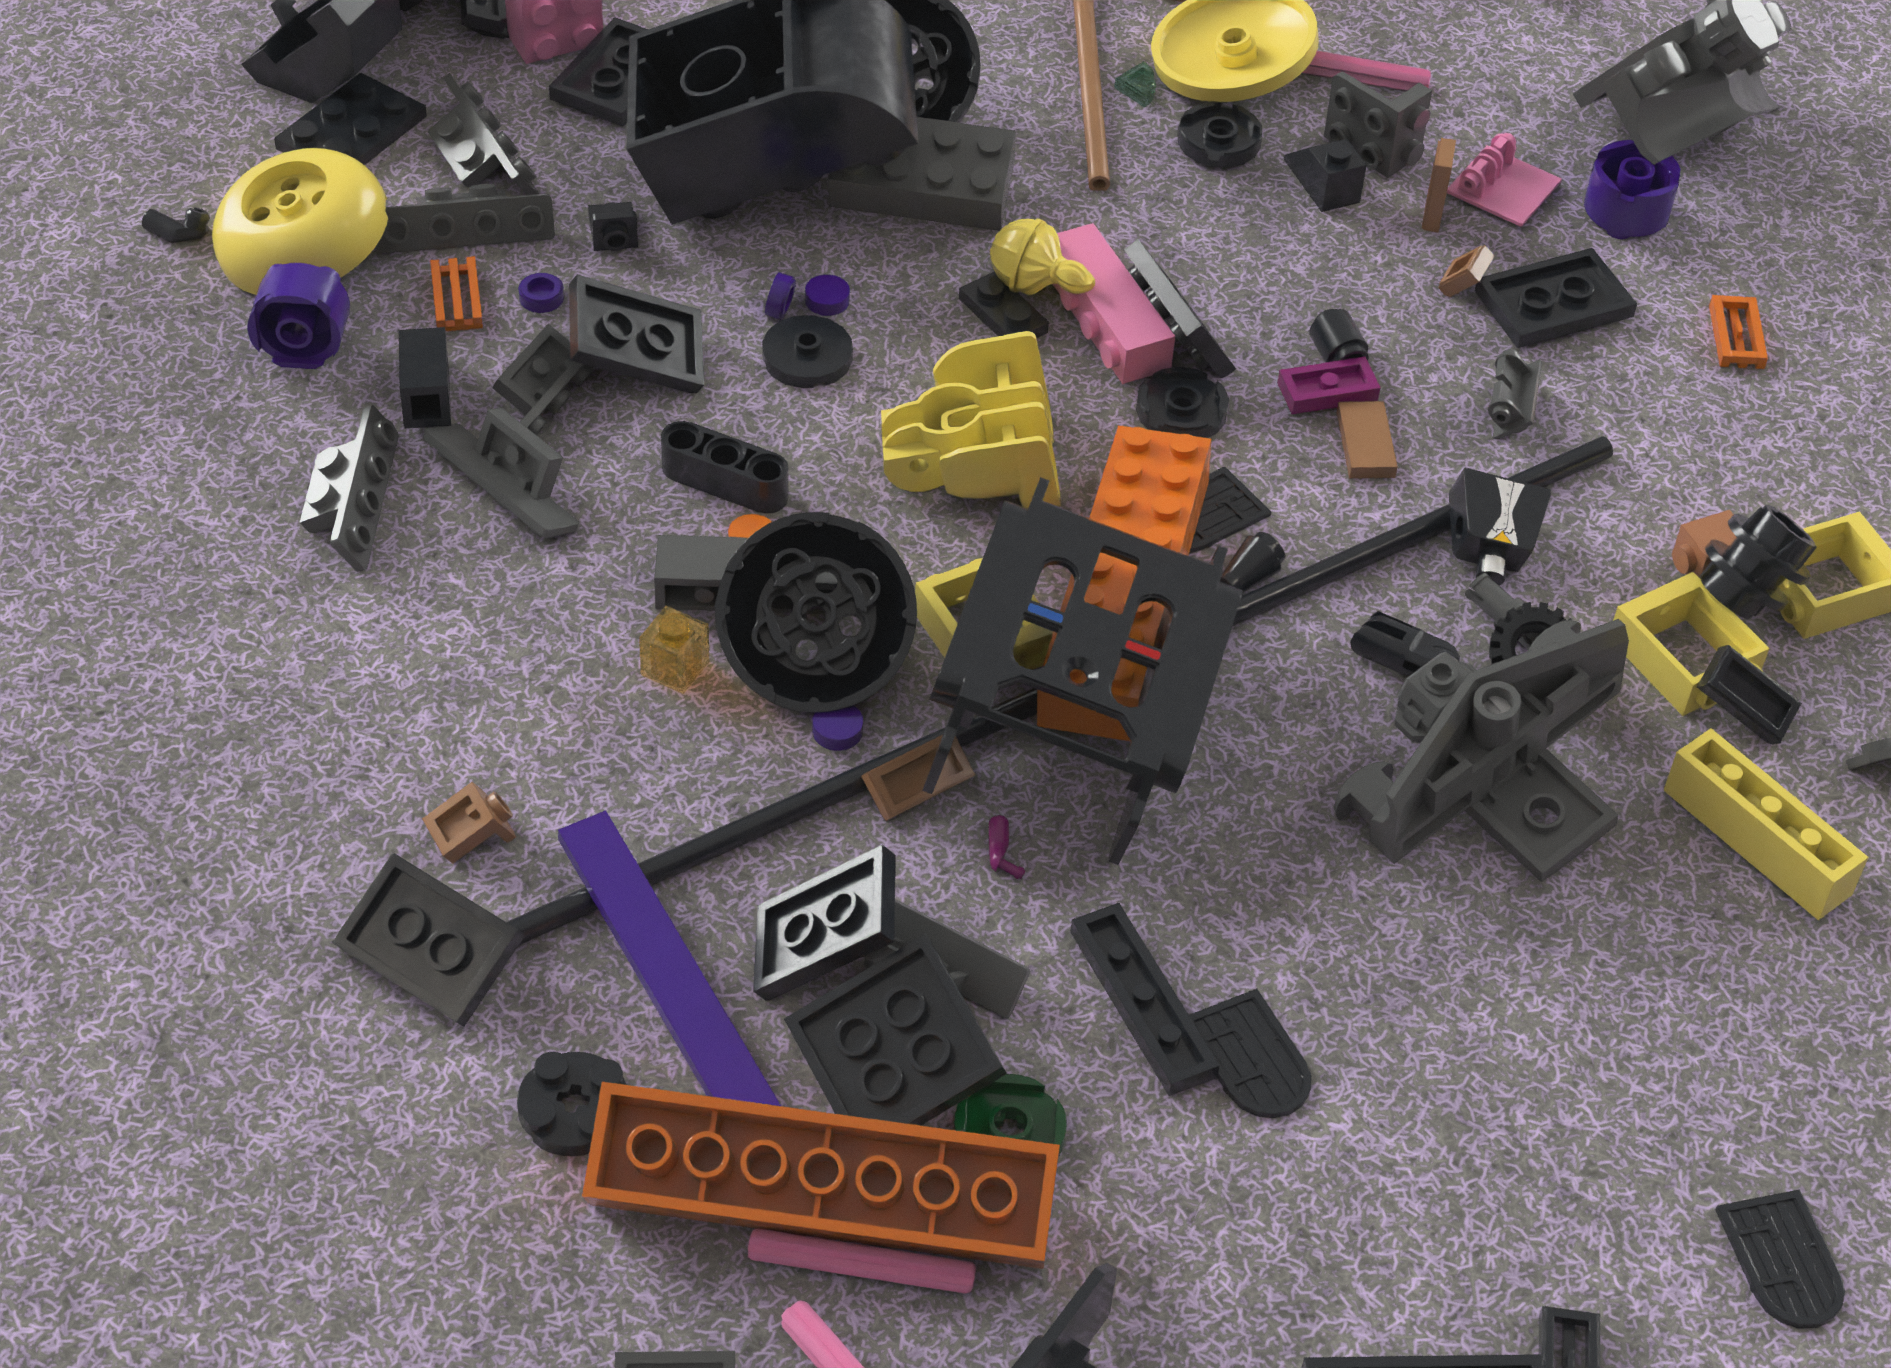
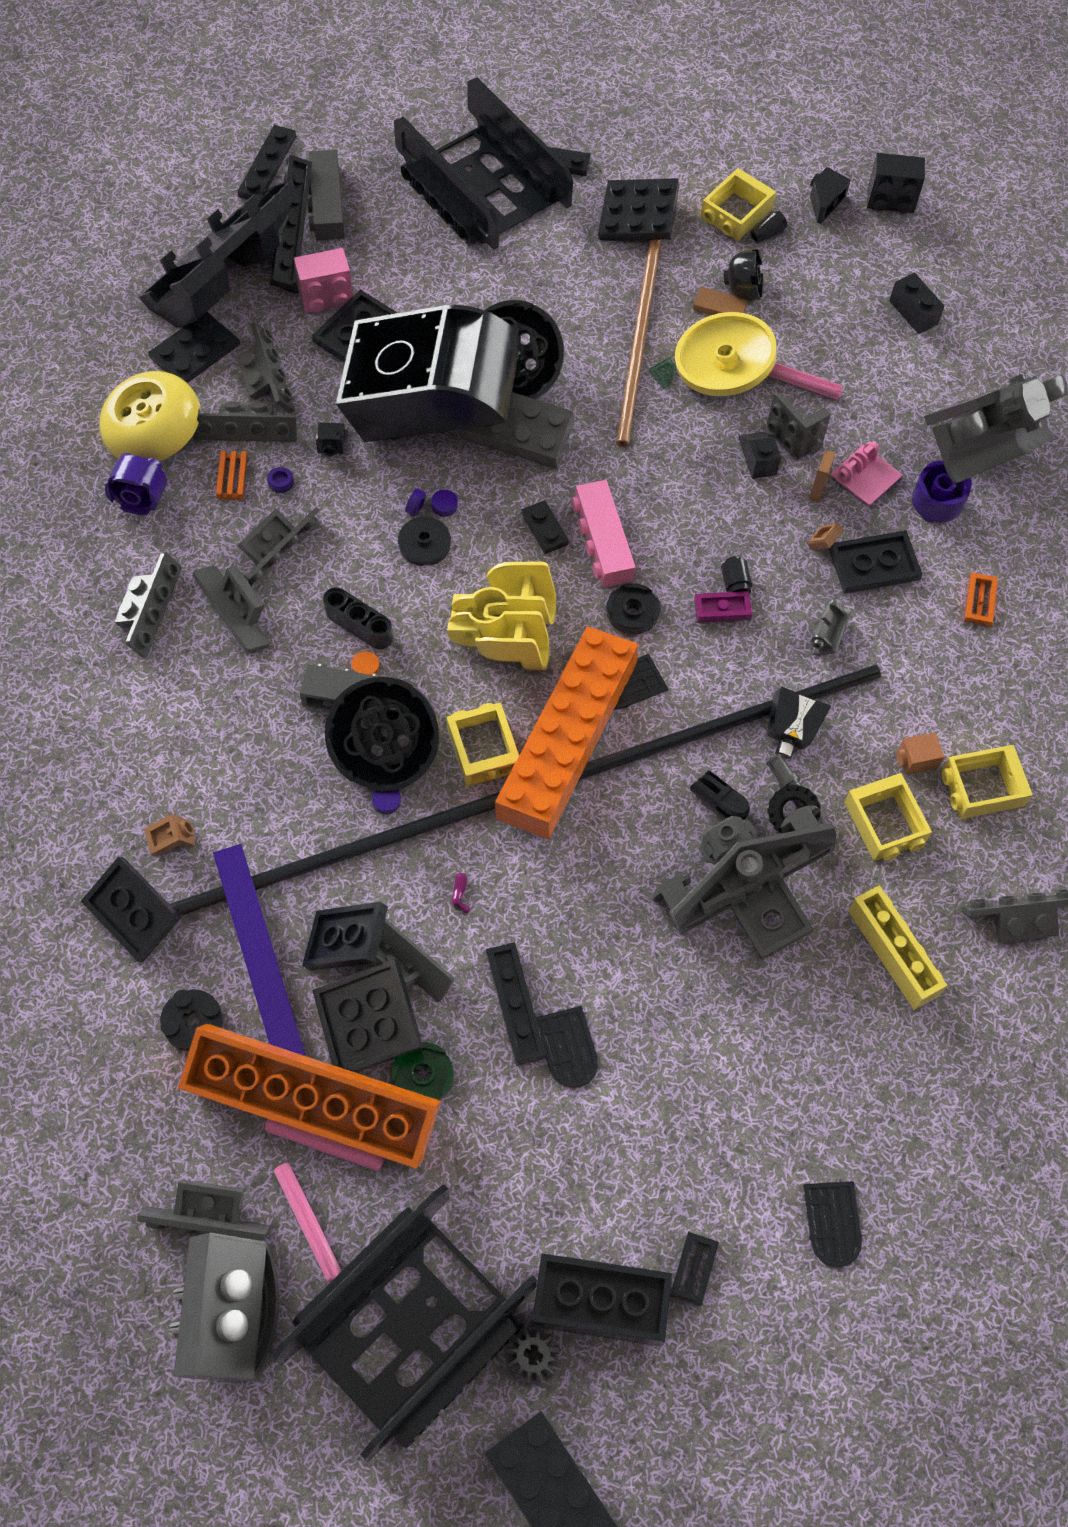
camera: 10 degrees right, 15 degrees up
(174, 230) = (90, 409): black arm -> none
(424, 378) = (199, 535): black brick -> none
(635, 334) = (323, 524): black plate -> none
(674, 649) = (303, 739): clear yellow brick -> none
(900, 782) = (423, 840): medium nougat tile -> none
(1030, 258) = (562, 500): light yellow piece -> none
(1091, 641) = (526, 786): black piece -> none
(1183, 320) = (643, 545): black plate -> none
(1219, 135) = (702, 407): black plate -> none
(1254, 562) = (645, 726): black cone -> none
(1366, 439) = (736, 646): medium nougat tile -> none
(1749, 695) = (912, 859): black tile -> none
(1757, 562) = (938, 776): black piece -> none

